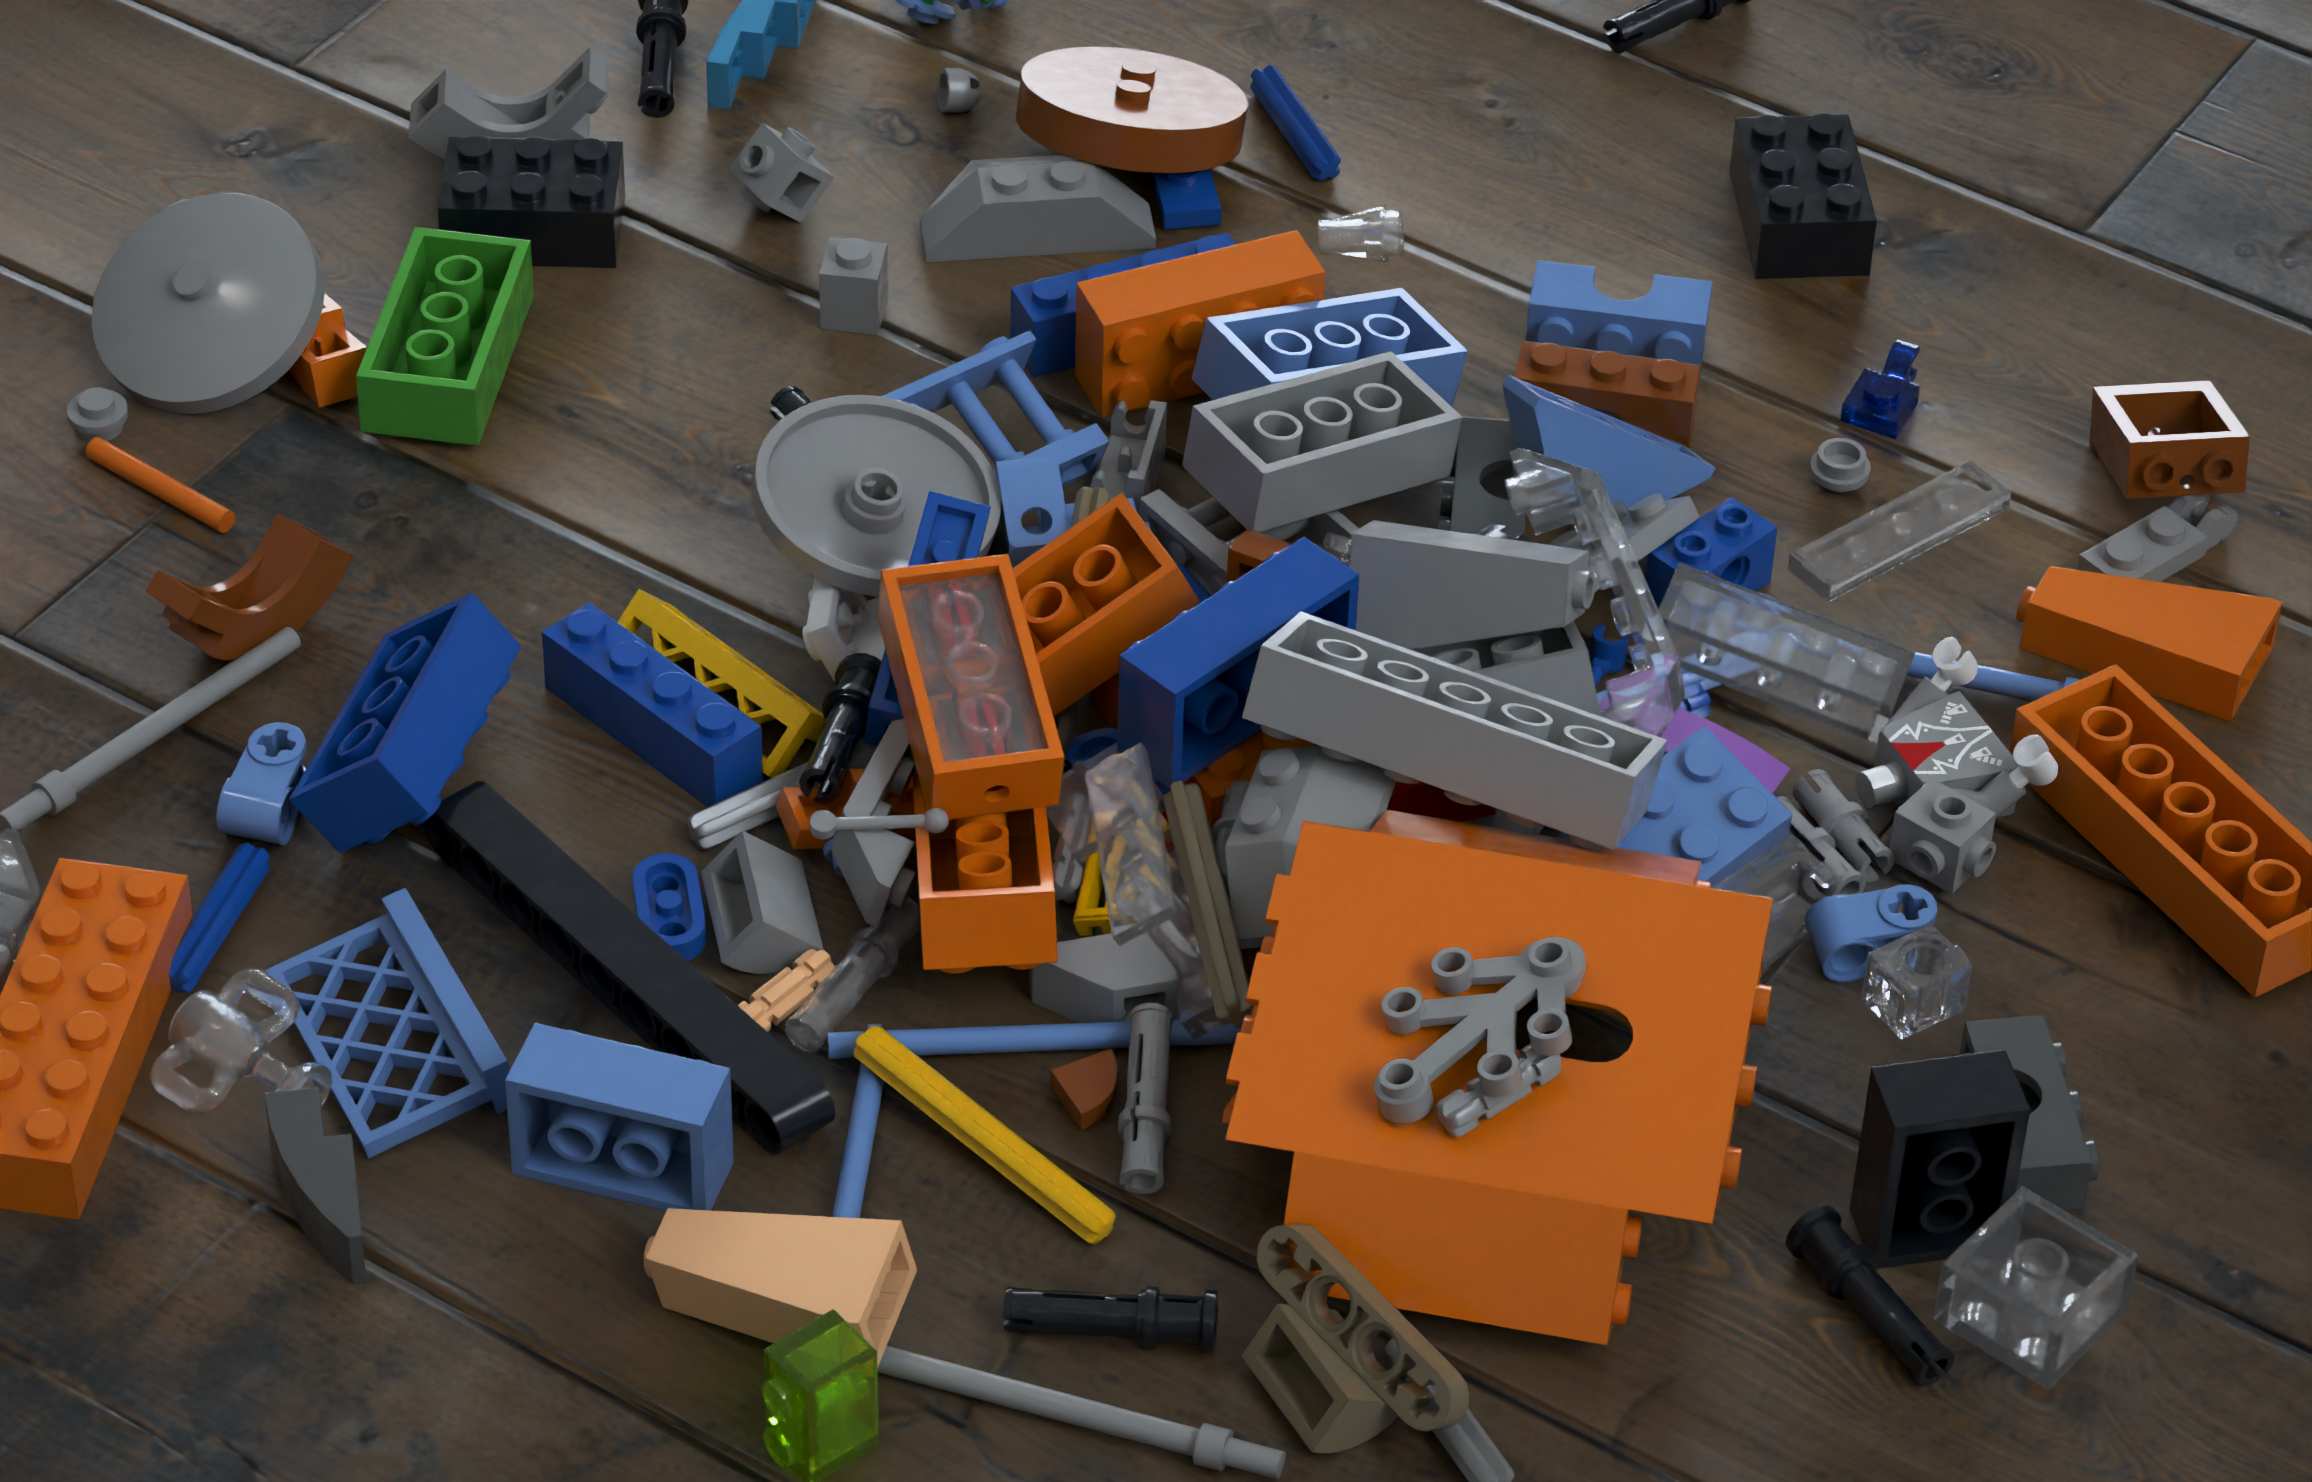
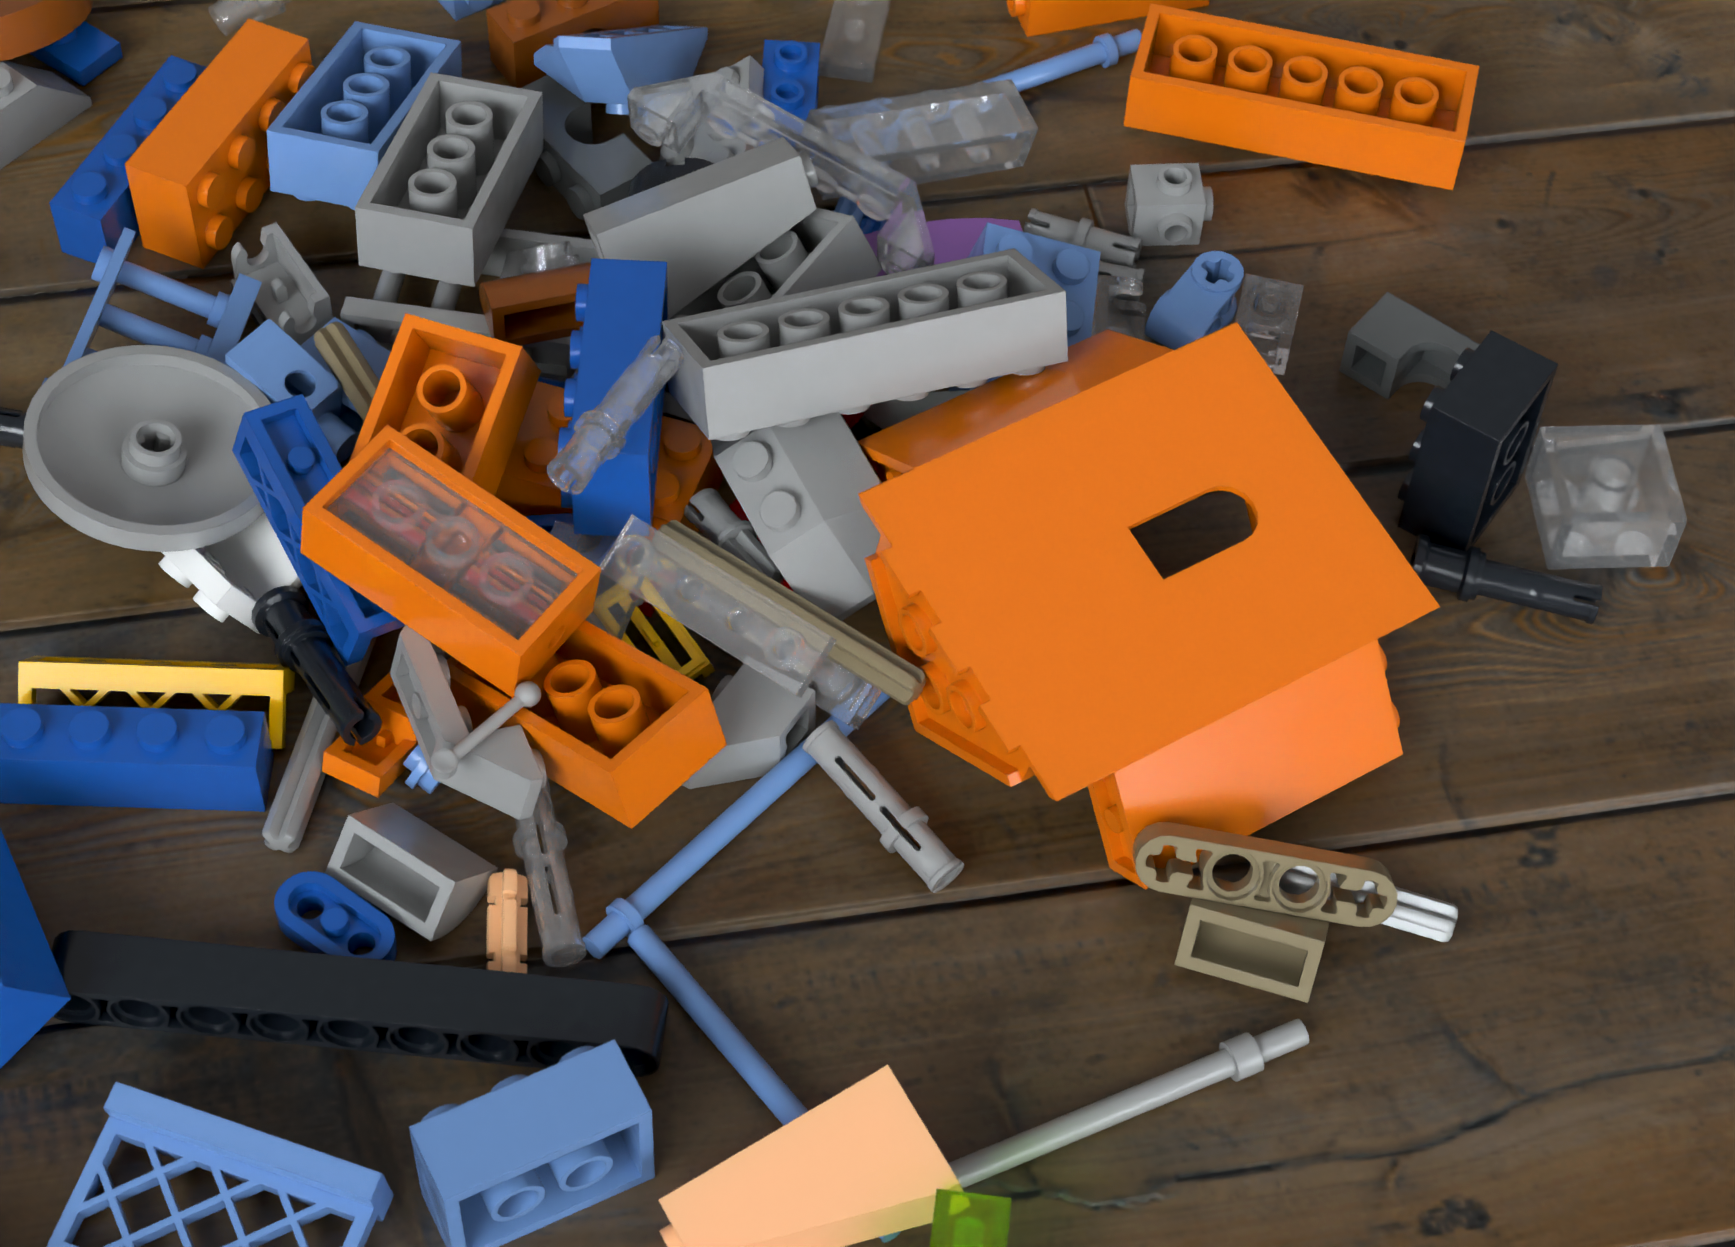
camera: 45 degrees left, 10 degrees up
(984, 1135) = (797, 931): yellow axle -> none
(1086, 1086) = (818, 829): dark orange tile -> none
(1144, 1317) = (1081, 989): black pin -> none
(1149, 649) = (603, 429): none -> clear pin
(1461, 1109) = (1214, 609): light grey axle -> none
(1544, 970) = (1158, 556): light grey plant -> none
(1949, 741) = (1093, 142): light grey torso -> none

